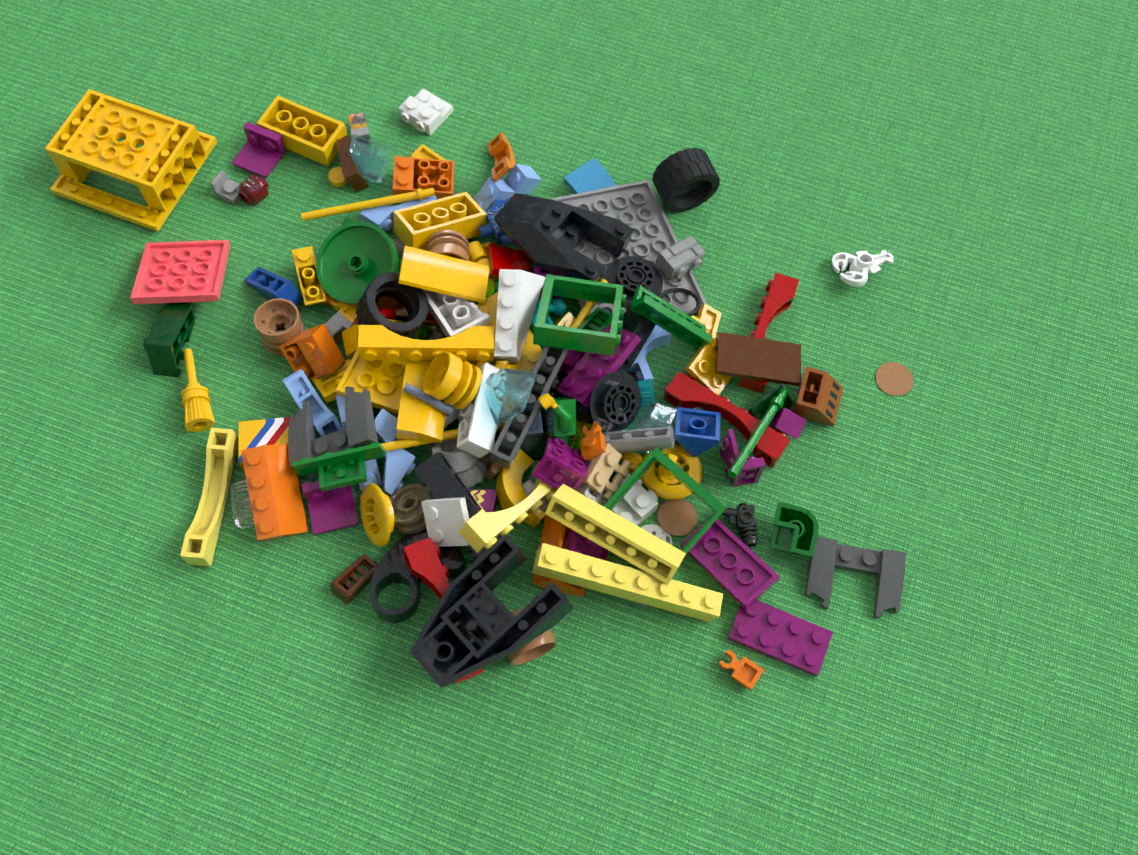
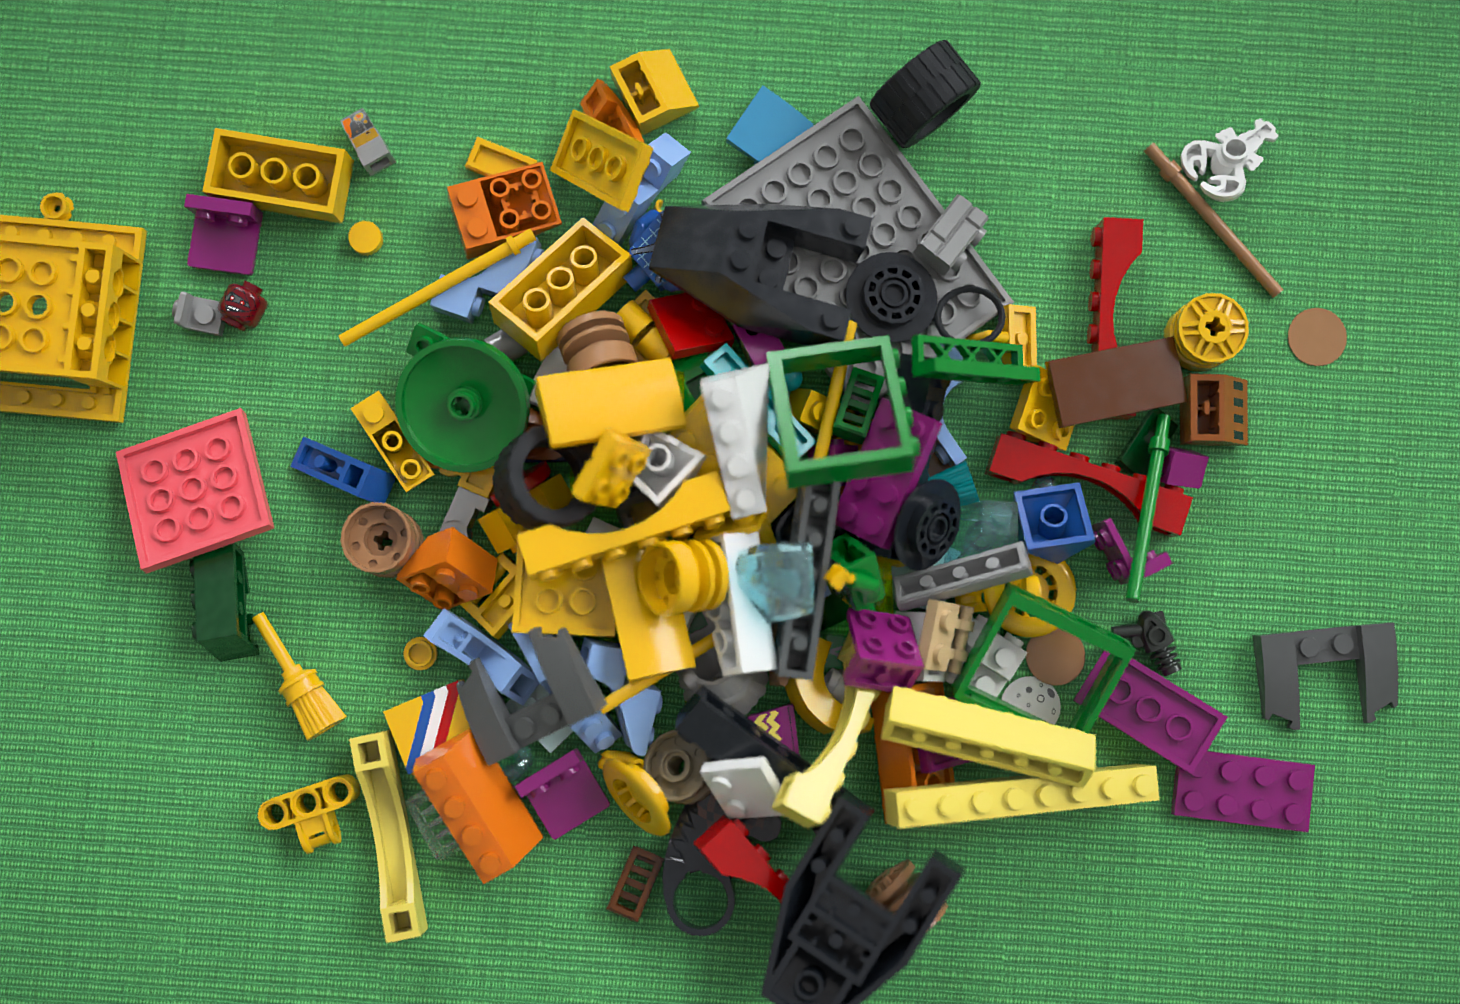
camera: 10 degrees left, 20 degrees up
(169, 479) = (311, 821): none -> yellow beam
(173, 113) = (53, 200): none -> yellow plate
(276, 401) = (420, 653): none -> yellow plate
(342, 467) = (567, 756): green bracket -> none
(349, 168) = (380, 213): reddish brown piece -> none
(370, 158) = (406, 194): clear light blue slope -> none
(421, 395) = (643, 612): sand blue piece -> none
(425, 111) = (459, 71): white plate -> none
(429, 304) = (611, 470): none -> yellow plate
(487, 162) = (601, 160): none -> yellow plate
(530, 143) = (653, 88): none -> yellow slope
(593, 443) = (916, 604): orange plate -> none
(744, 671) = (1207, 857): orange plate -> none
(794, 530) = (1233, 640): green brick -> none
(824, 266) = (1171, 172): none -> medium nougat bar
(824, 348) = (1193, 341): none -> yellow wheel

